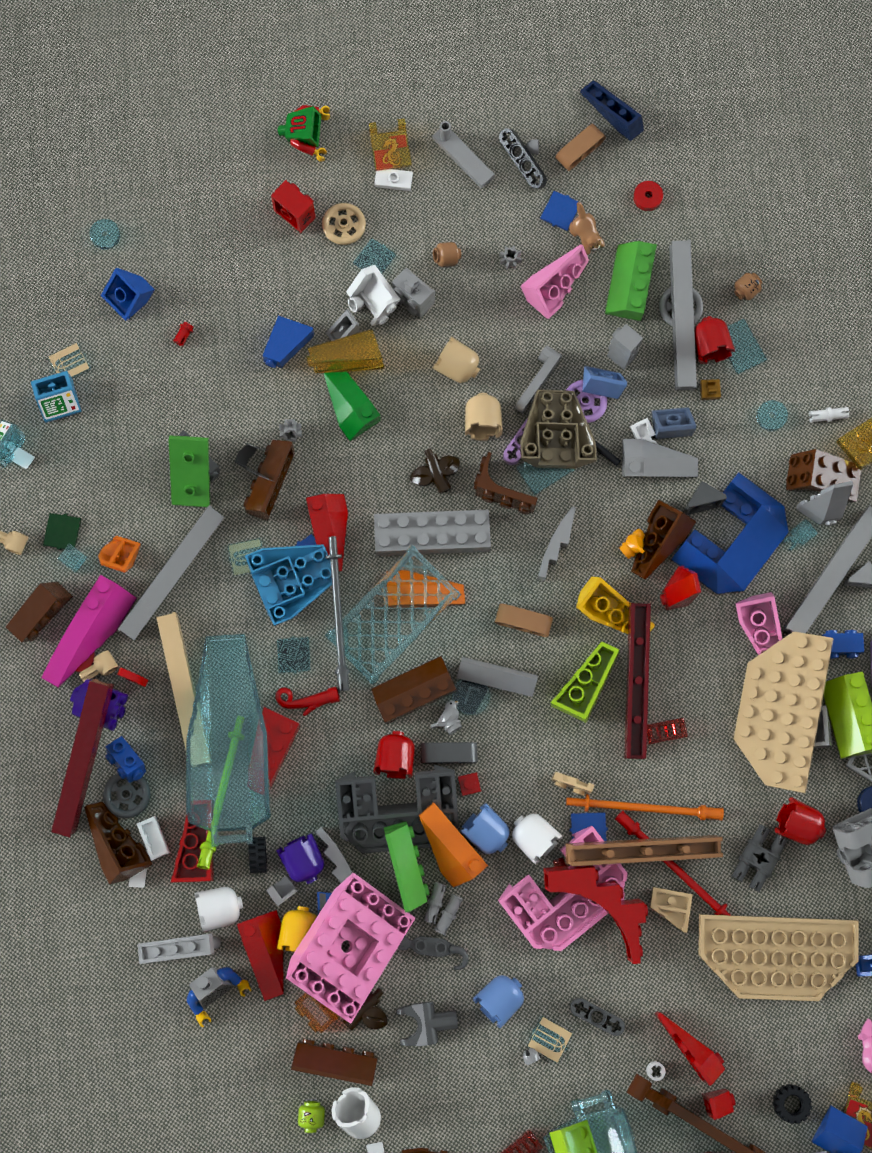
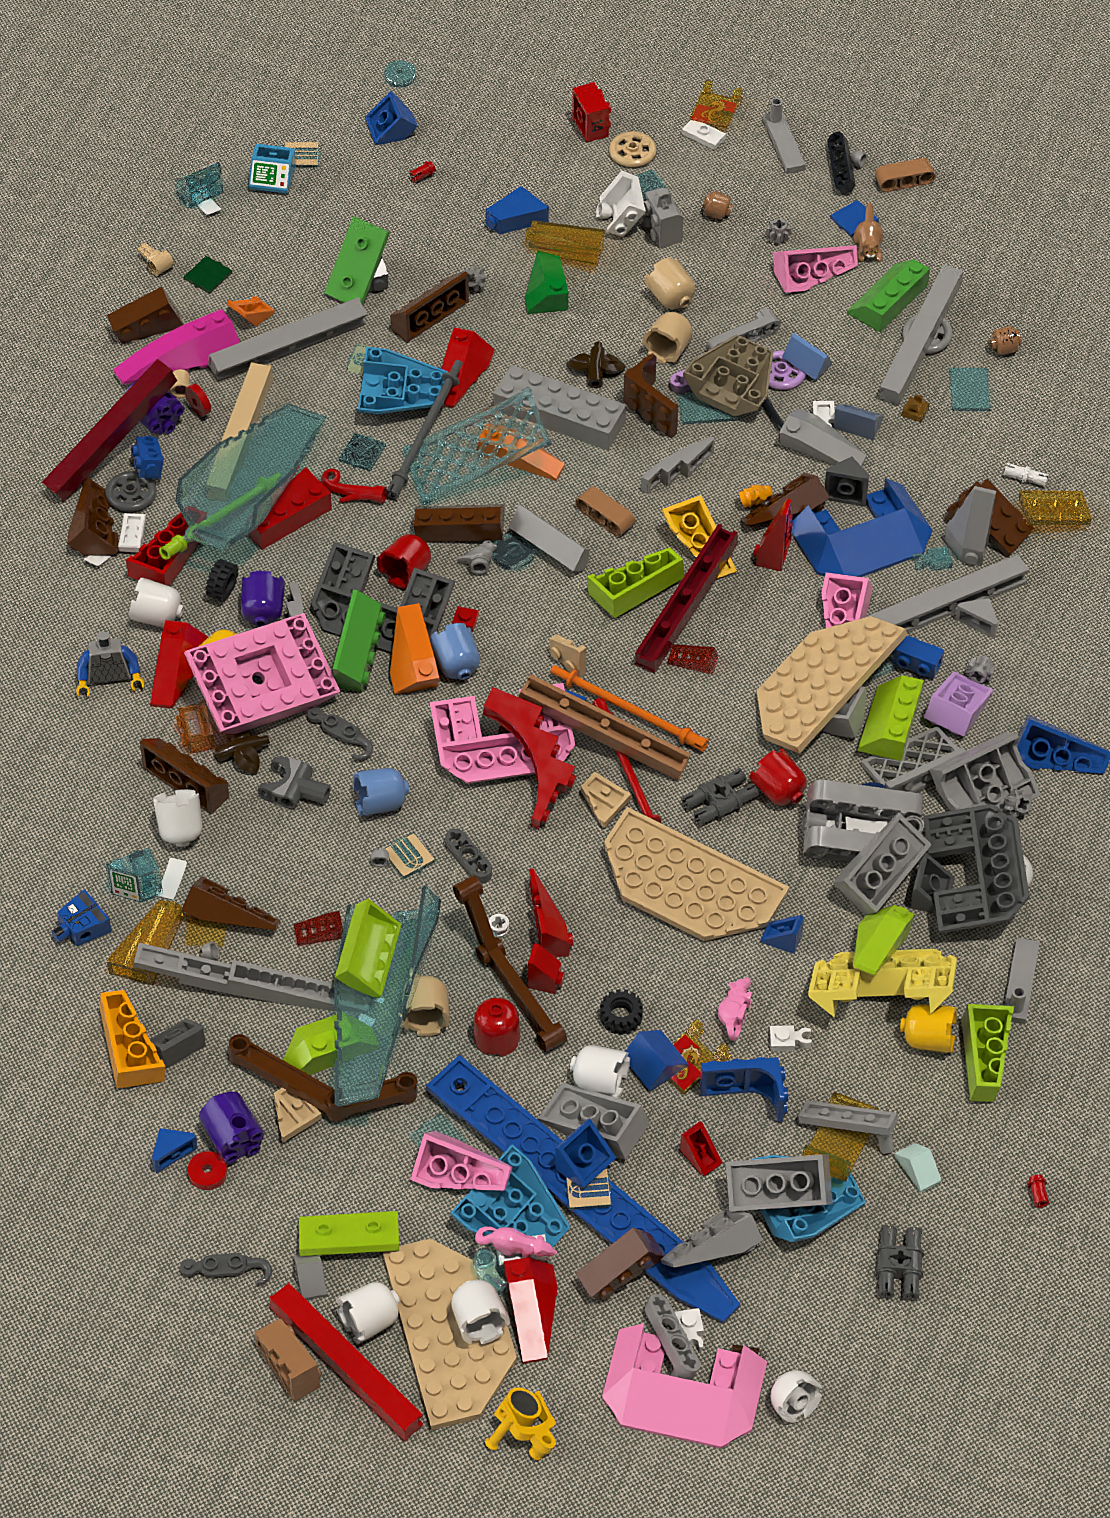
camera: 30 degrees right, 25 degrees down
(72, 558) = (205, 294): clear light blue panel -> none
(178, 948) = (99, 619): light grey piece -> none
(243, 456) = (420, 282): dark grey piece -> none
(282, 891) = (227, 623): light grey panel -> none
(303, 129) = (640, 62): torso -> none
(311, 1116) = (133, 807): lime head -> none
(344, 326) = (581, 217): light grey slope -> none
(435, 902) = (368, 695): light grey pin -> none
(448, 914) = (375, 709): light grey pin -> none
(449, 753) = (467, 585): dark grey beam -> none
(535, 836) = (501, 672): white cylinder -> none
(614, 110) = (958, 160): dark blue slope -> none
(624, 346) = (844, 330): light grey brick -> none
(652, 189) = (950, 238): red piece -> none
(713, 340) = (939, 366): red cylinder -> none
(777, 409) = (959, 451): clear light blue piece -> none

